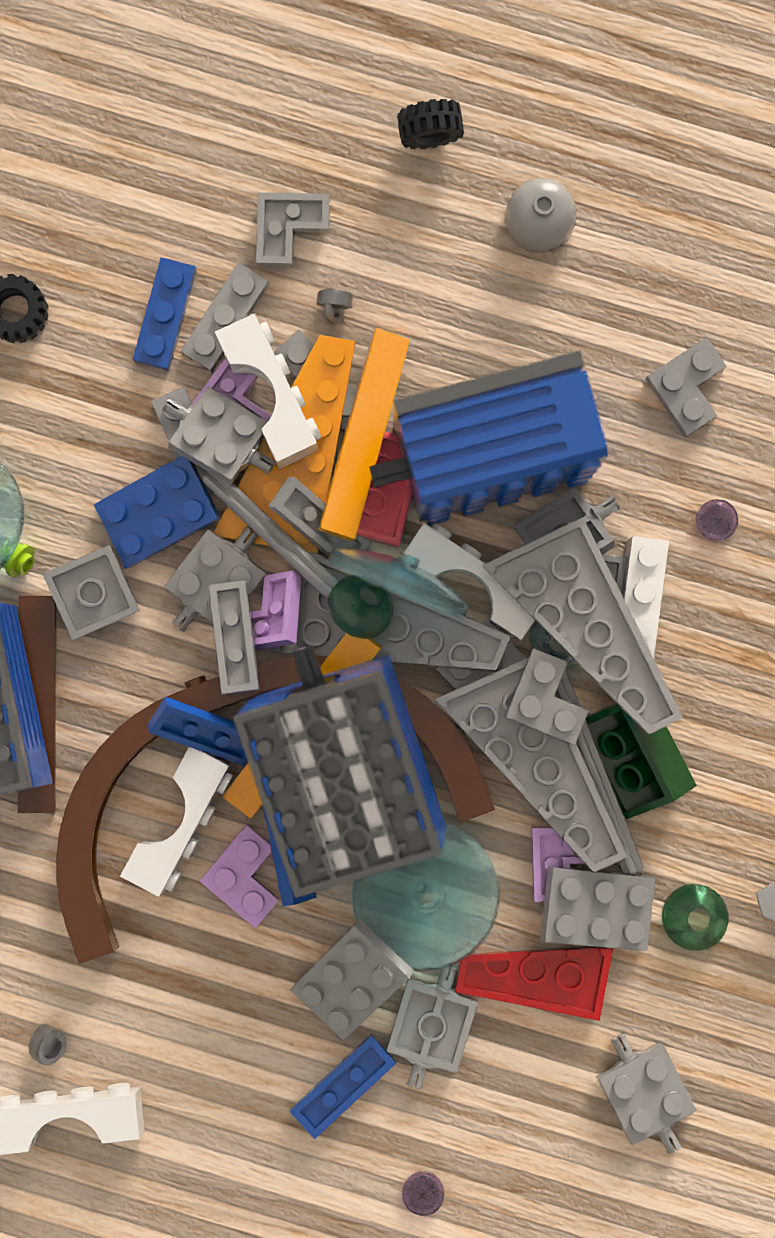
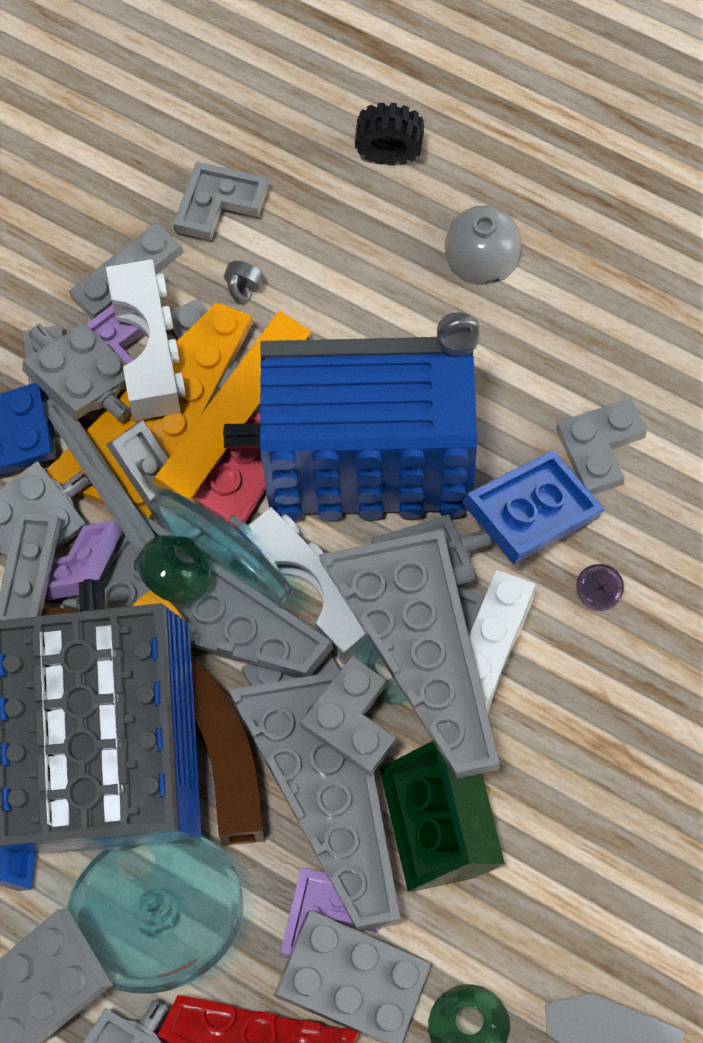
camera: 15 degrees right, 20 degrees down
(164, 314) = (65, 256): blue plate -> none
(568, 354) = (458, 334): none -> flat silver tile
(596, 768) = (406, 932): light grey axle -> none
(648, 466) = (533, 506): none -> plate

